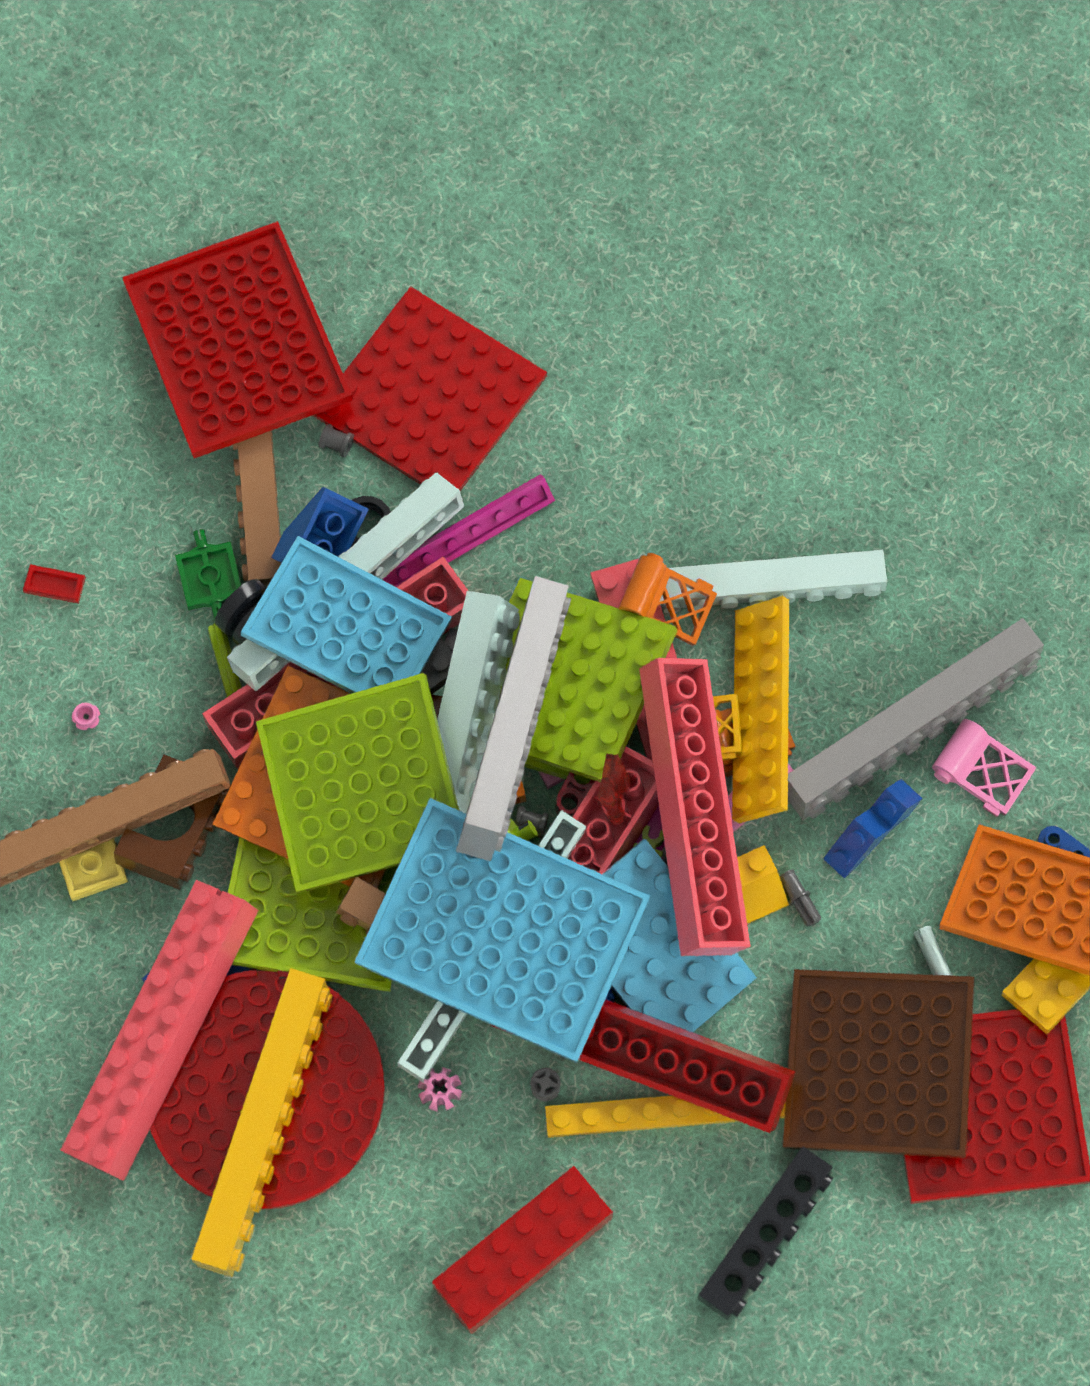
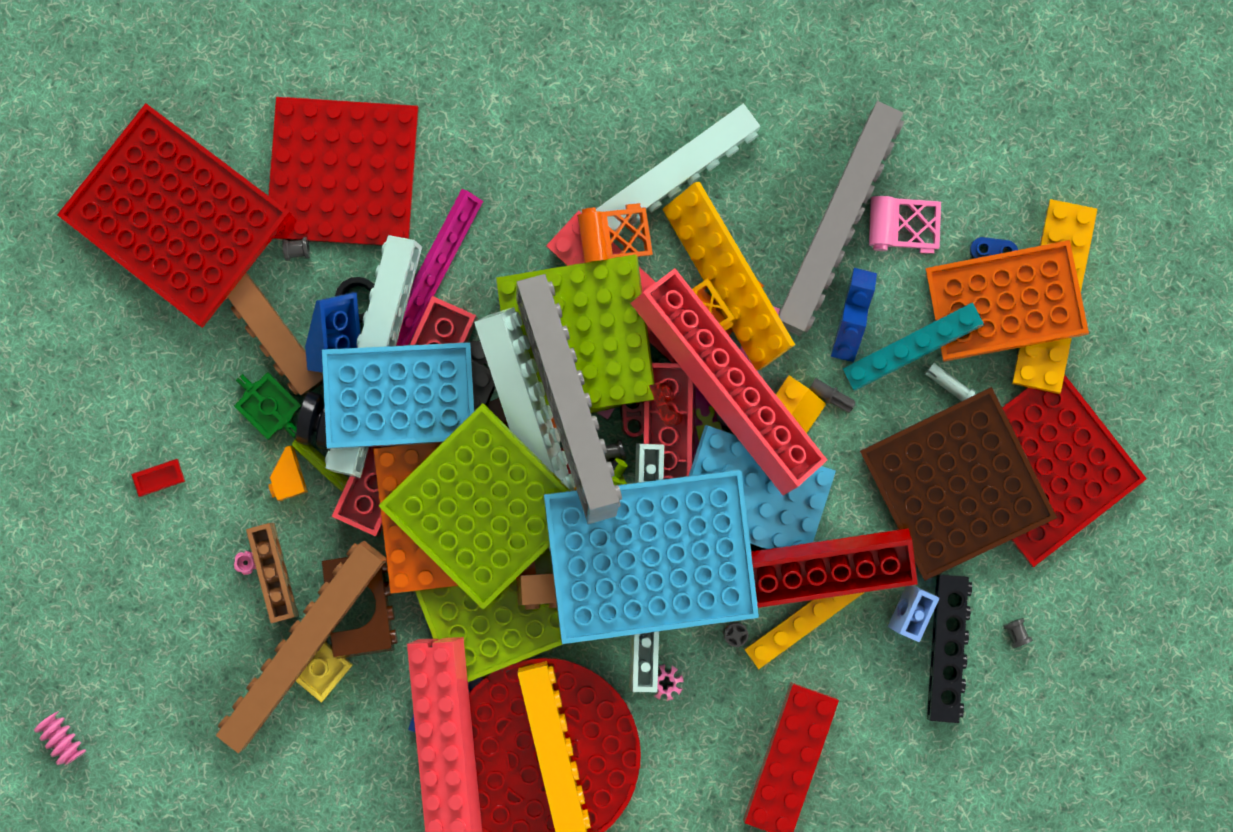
camera: 35 degrees left, 15 degrees up
(106, 738) = (272, 572): none -> medium nougat brick
(183, 655) = (287, 477): none -> light orange slope
(750, 1170) = (913, 612): none -> light blue brick
(852, 1263) = (1018, 633): none -> dark grey bush
(916, 893) = (913, 346): none -> teal plate

